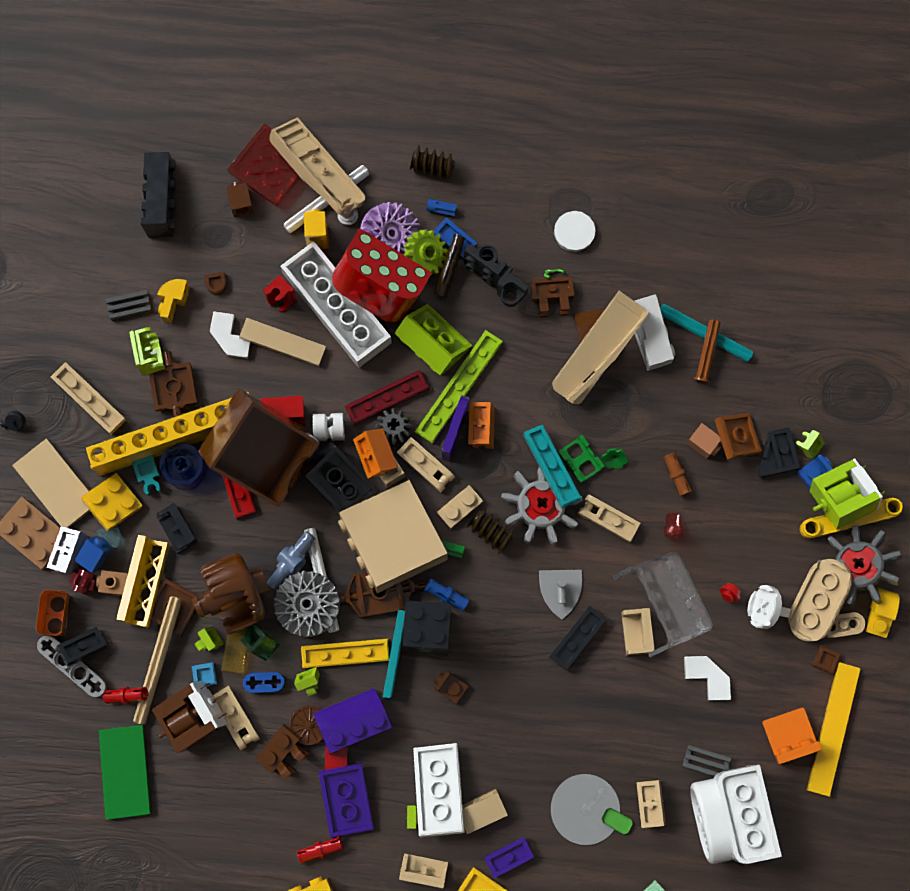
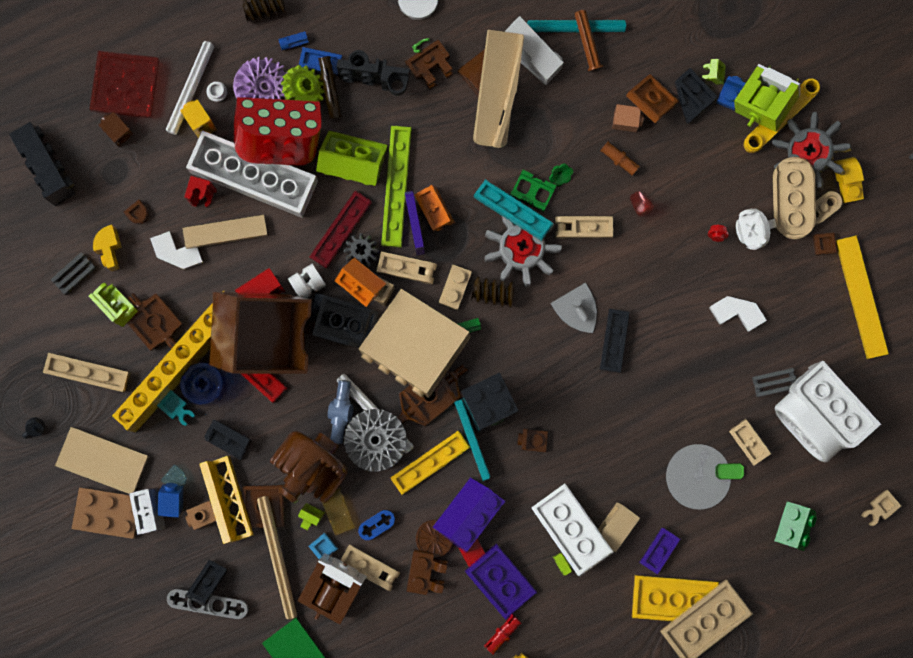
camera: 30 degrees left, 5 degrees up
(44, 607) = (155, 568): orange piece -> none
(82, 582) = (175, 529): dark red gear -> none
(111, 502) = (159, 449): yellow plate -> none
(125, 695) = (267, 601): red pin -> none
(259, 642) = (354, 494): clear green brick -> none
(308, 680) = (413, 502): lime tile -> none
(316, 166) = (166, 64): tan piece -> none
(423, 870) = (597, 601): tan hinge -> none
(446, 594) = (486, 366): blue pin -> none
(637, 631) = (660, 307): tan panel -> none
(672, 597) = (675, 264): clear windscreen -> none
(791, 735) = (831, 322): orange bracket -> none

